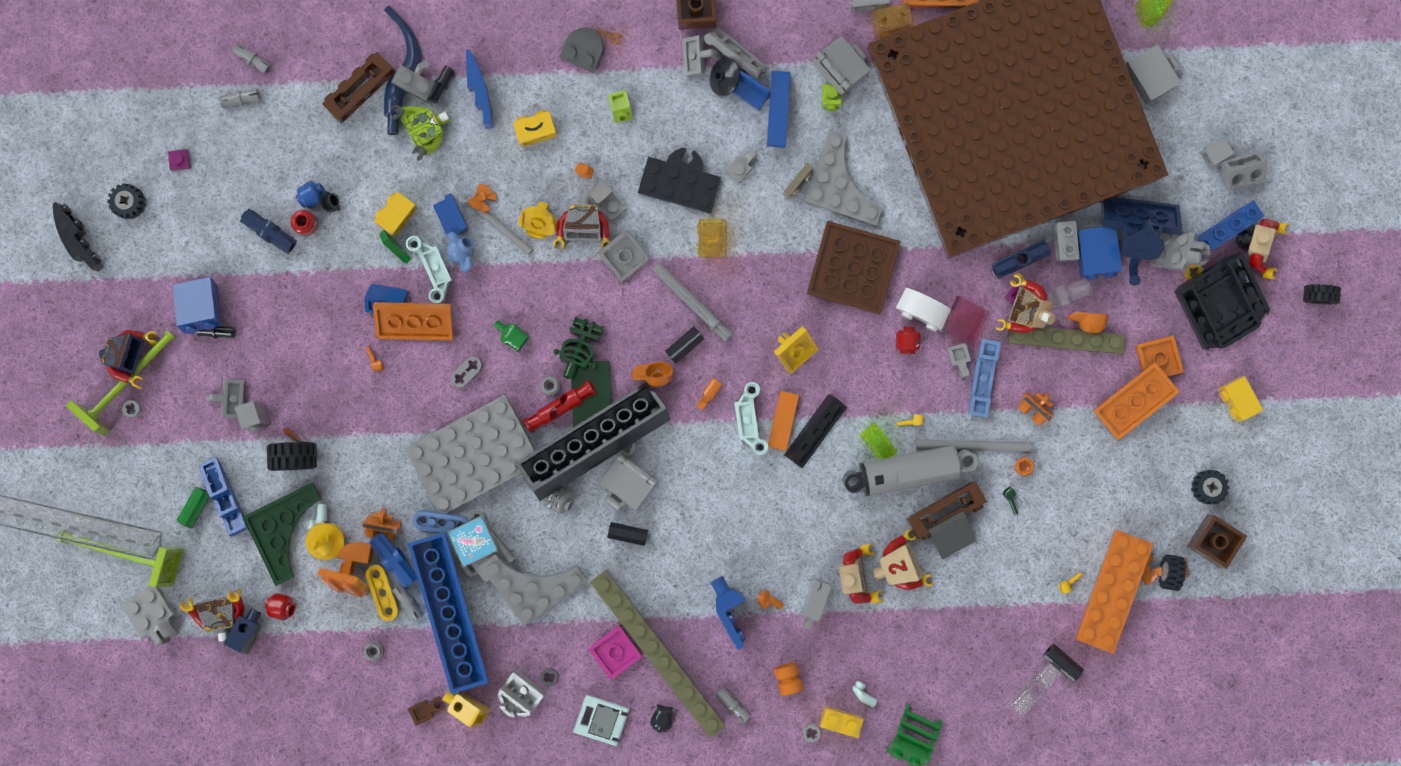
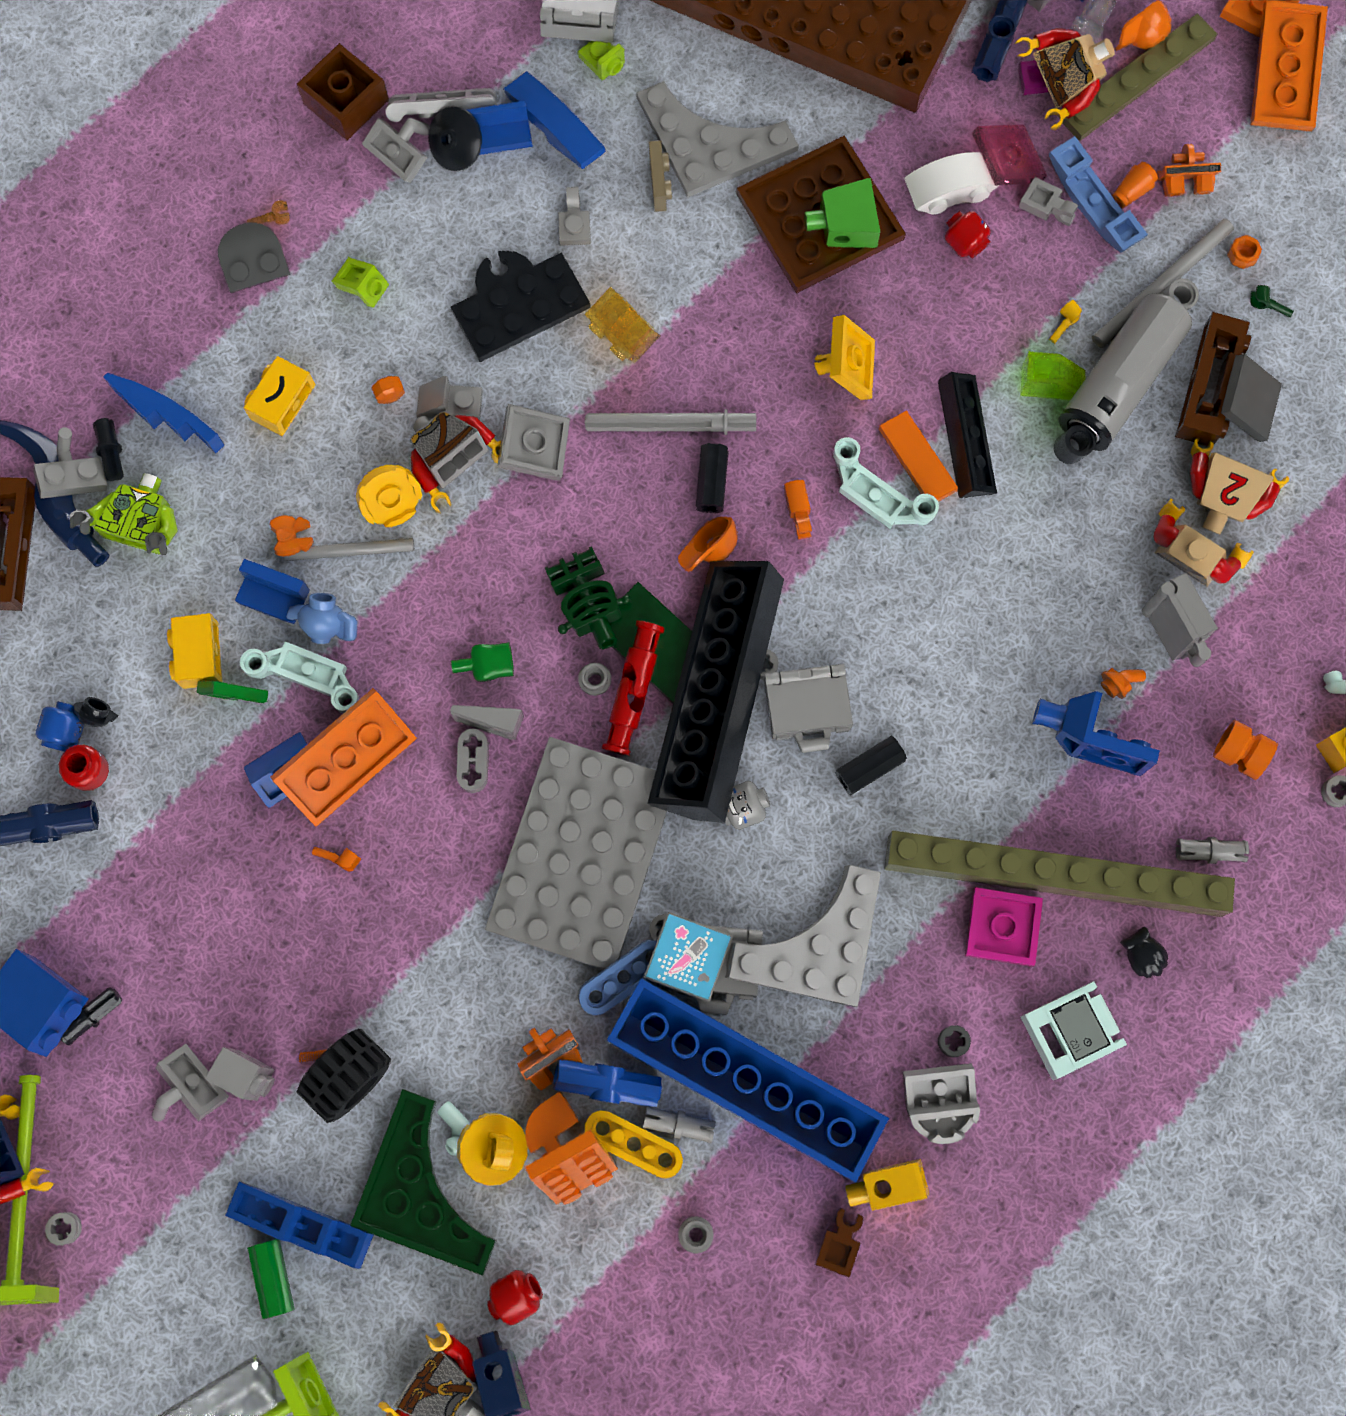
camera: 45 degrees left, 10 degrees down
(492, 366) = (498, 721): none -> light grey slope
(859, 282) = (847, 216): none -> bright green torso
(1007, 388) = (1136, 183): none -> orange cone

